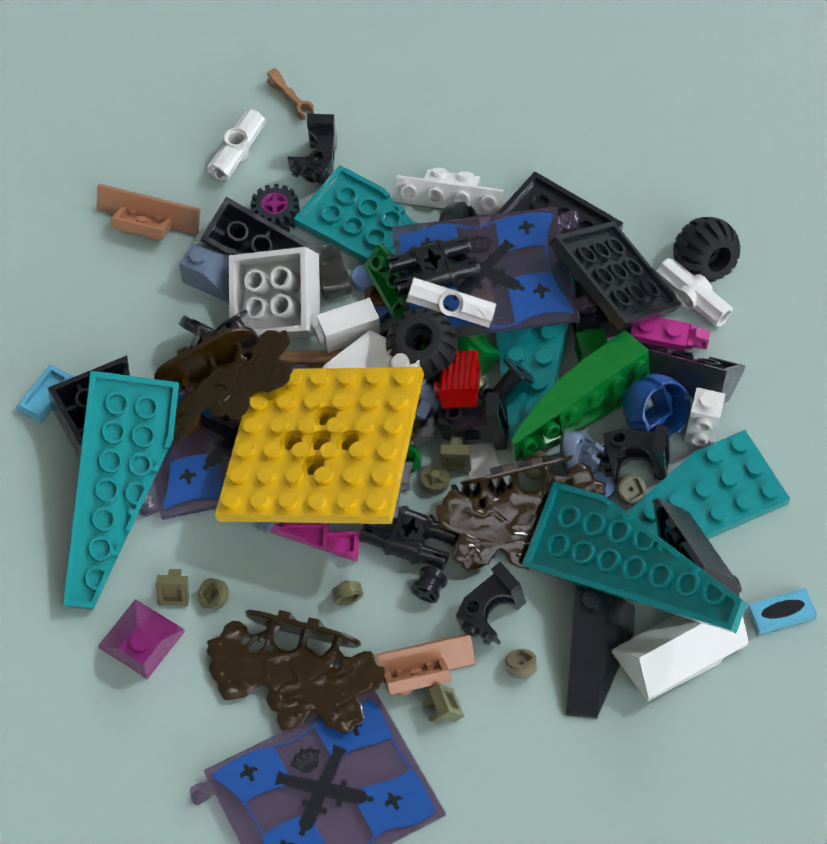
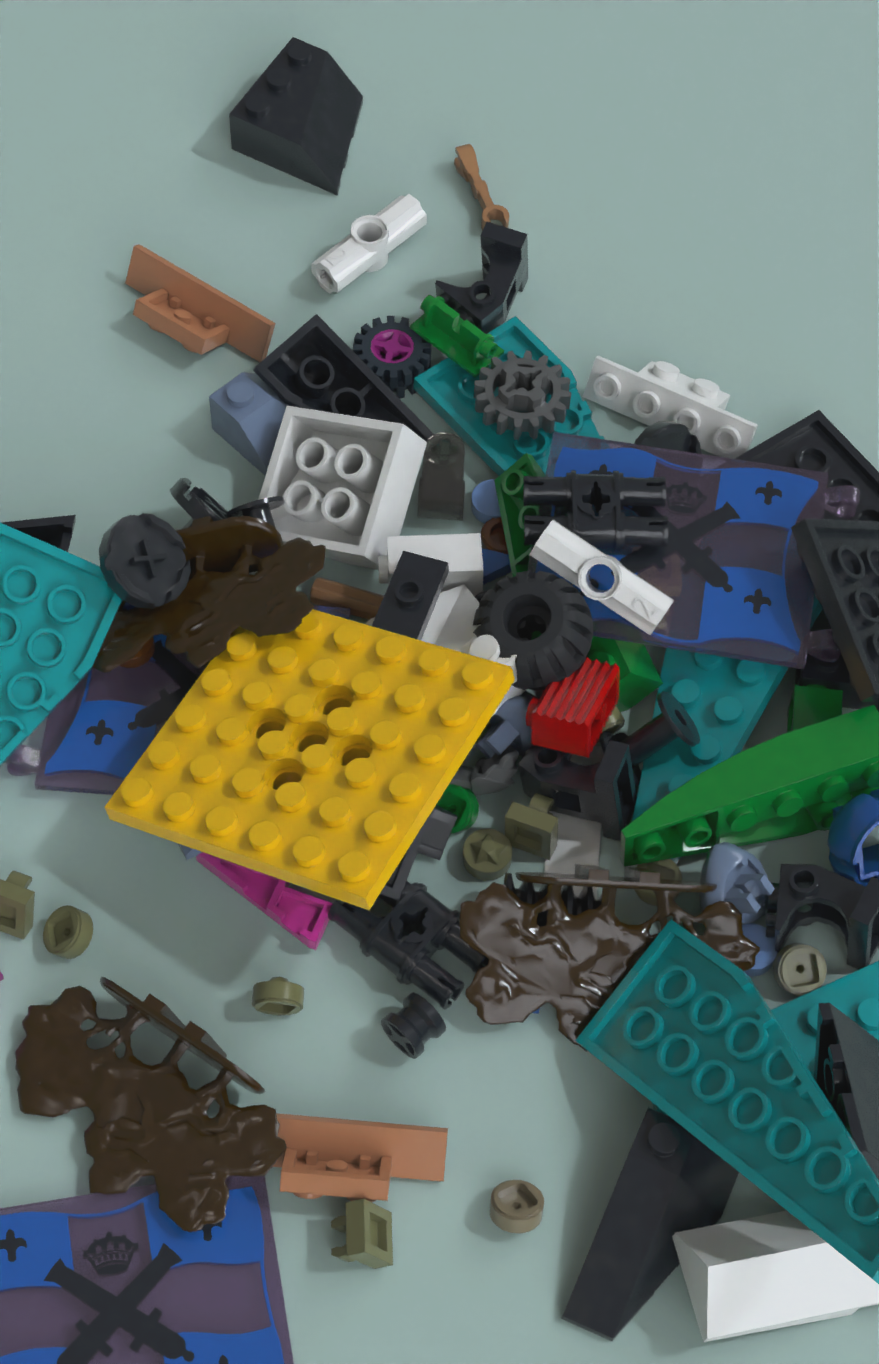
camera: 15 degrees right, 0 degrees up
(165, 79) = (299, 116): none -> black wedge
(183, 369) = (144, 561): none -> black tile
(310, 187) = (454, 336): none -> green hinge
(344, 343) = (411, 595): none -> black plate
(362, 210) = (522, 395): none -> dark grey gear
(478, 604) = (489, 1080): black tile -> none

